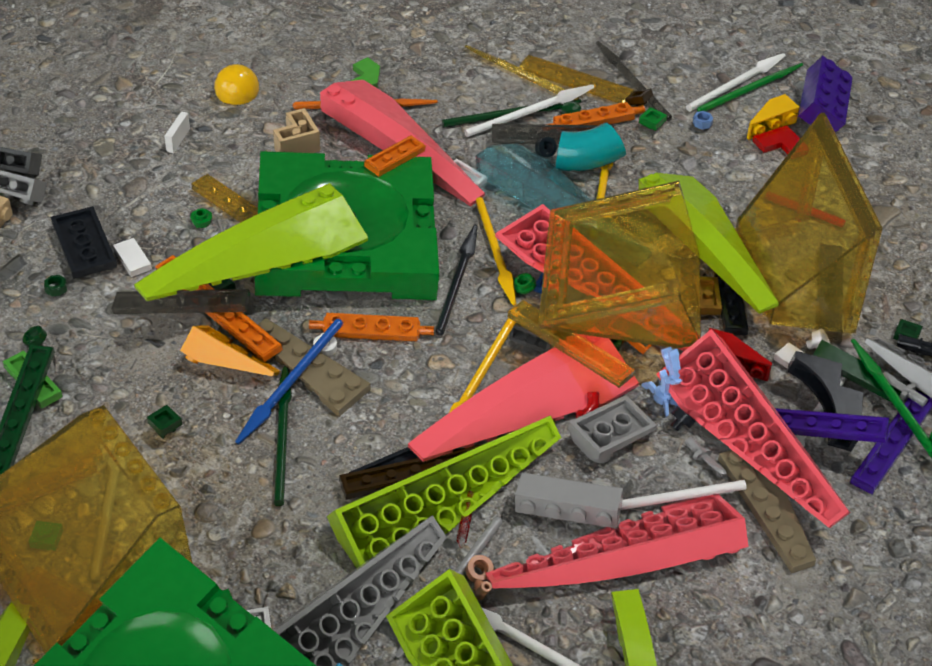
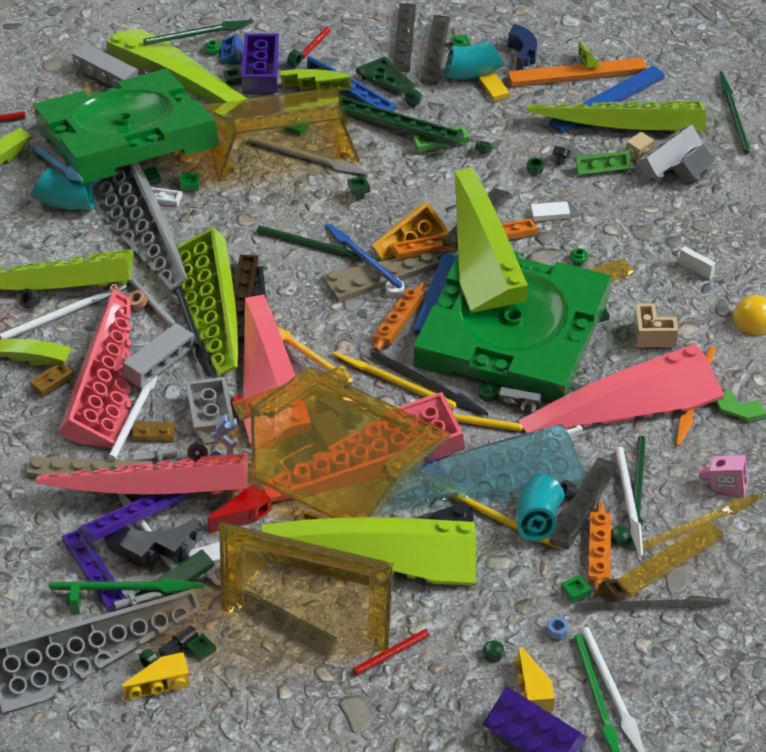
camera: 115 degrees right, 0 degrees up
(27, 268) = (560, 153): none -> black tile
(32, 232) = (602, 162): none -> bright green plate
(83, 242) = (579, 187): black plate -> none
(318, 307) = (435, 290): none -> blue tile
(394, 155) = (571, 358): orange tile -> none
(444, 203) = (511, 396): none -> light grey plate
(445, 232) = (488, 391): none -> dark green tile
(463, 335) = (389, 377): none -> yellow piece
(466, 64) = (727, 475): none -> bright pink torso
(535, 467) = (200, 352): none -> black piece
(665, 601) = (51, 379): none -> pearl gold plate
(671, 471) = (153, 431): none -> pearl gold plate
(754, 150) = (493, 651): none -> dark green tile
(776, 138) = (492, 686): red tile -> none

